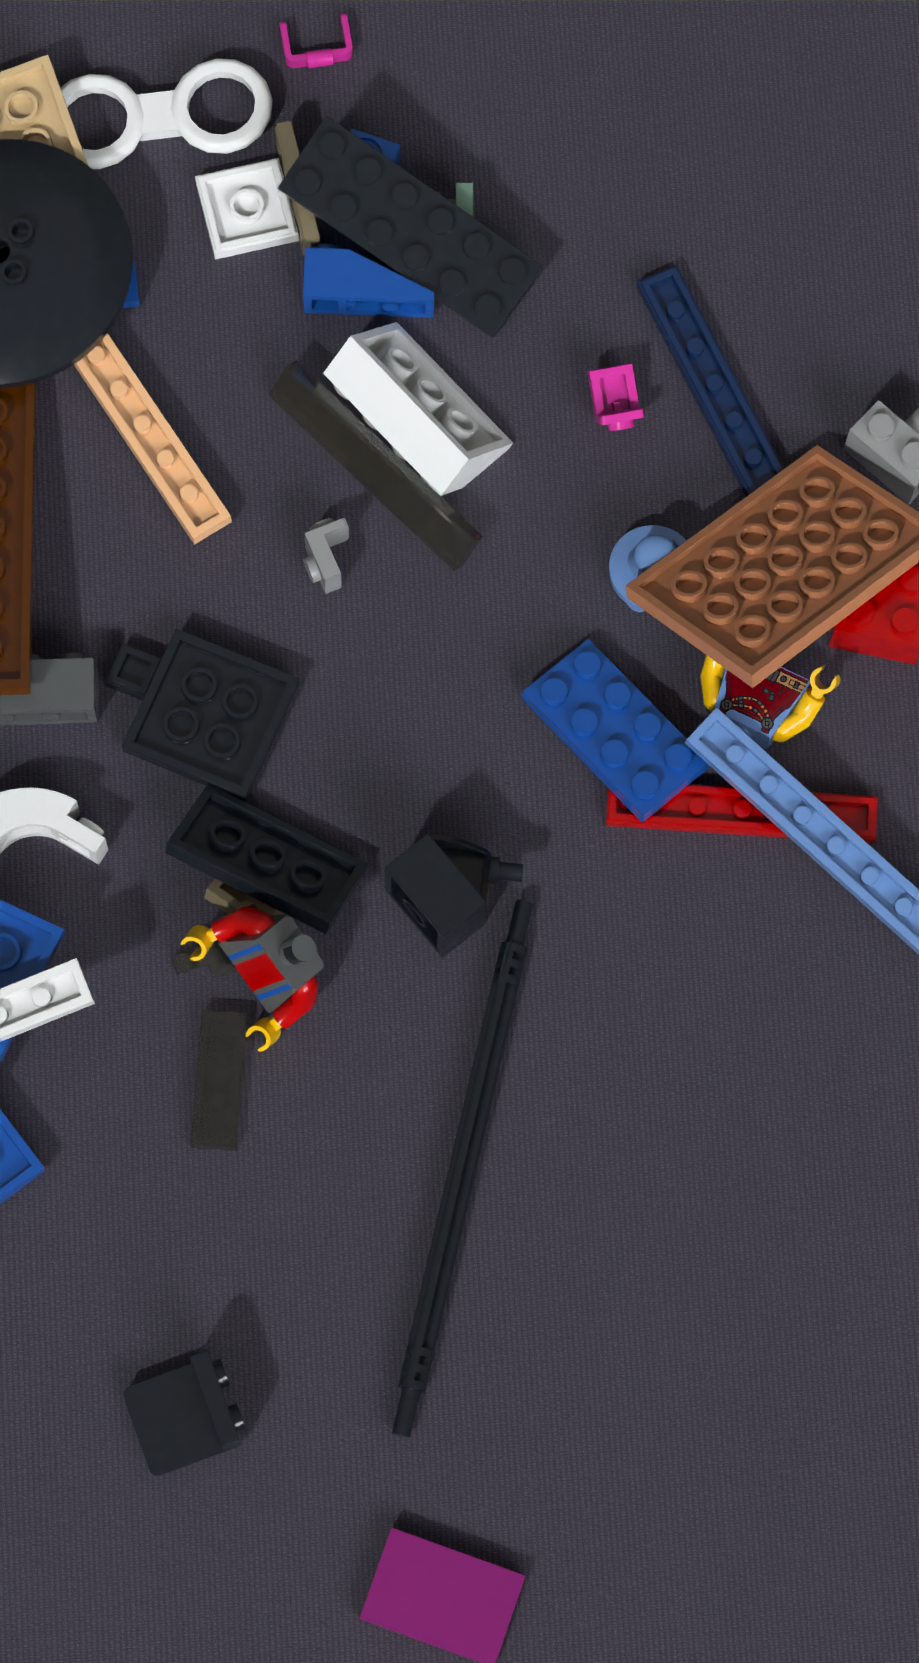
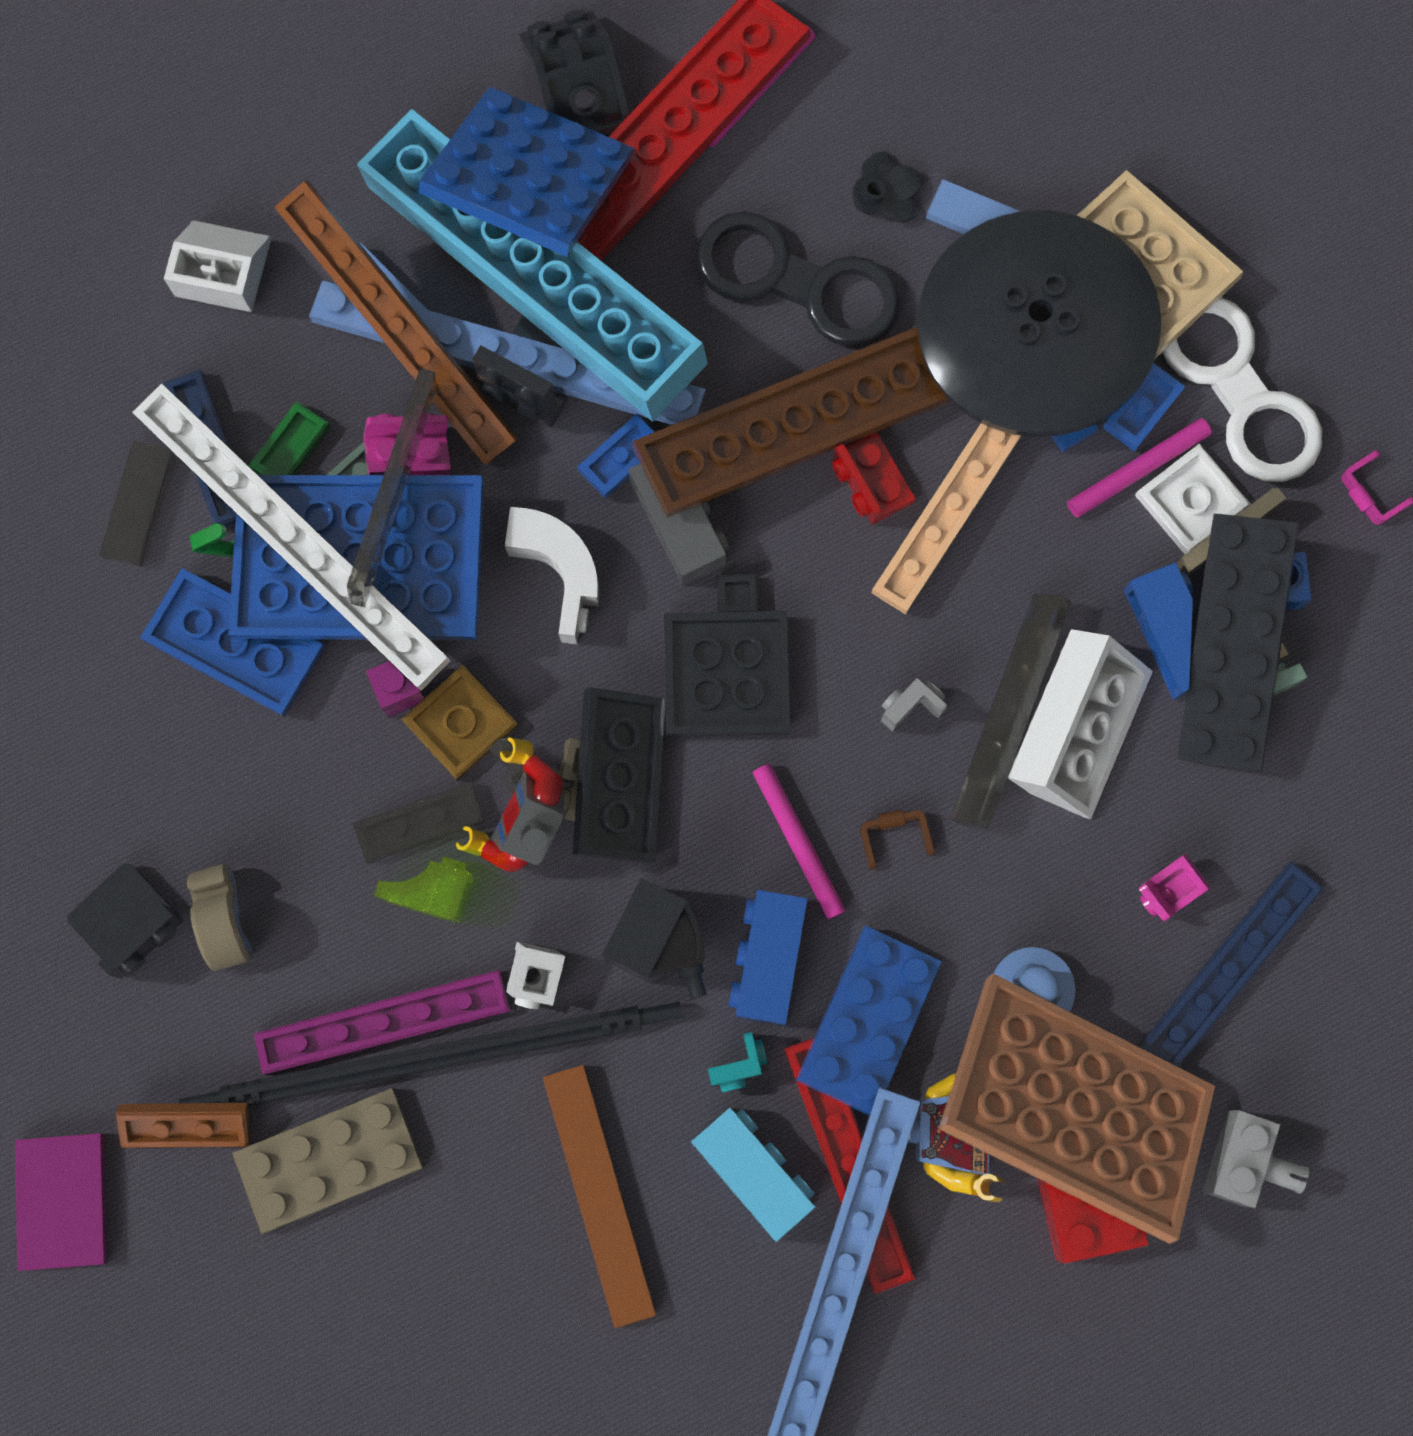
camera: 70 degrees right, 5 degrees up
(71, 1041) = (393, 689): none -> magenta brick
(79, 492) = (872, 478): none -> red bracket
(136, 997) = (459, 722): none -> pearl gold tile
(140, 209) = (1145, 409): none -> blue plate
(191, 242) = (1139, 467): none -> dark pink piece
(225, 1314) = (217, 918): none -> dark tan animal
(301, 1089) = (435, 892): none -> clear neon green arch
(405, 1201) = (381, 1022): none -> magenta tile
(409, 720) = (799, 841): none -> dark pink piece
(421, 1438) = (183, 1125): none -> dark orange tile
(428, 1025) = (549, 968): none -> white brick
(429, 626) = (891, 820): none -> reddish brown piece
(512, 795) = (768, 957): none -> blue brick
(519, 1310) = (327, 1160): none -> dark tan plate
(611, 879) = (733, 1075): none -> teal bracket
(670, 1059) = (599, 1196): none -> dark orange tile
(713, 900) = (755, 1172): none -> medium azure brick

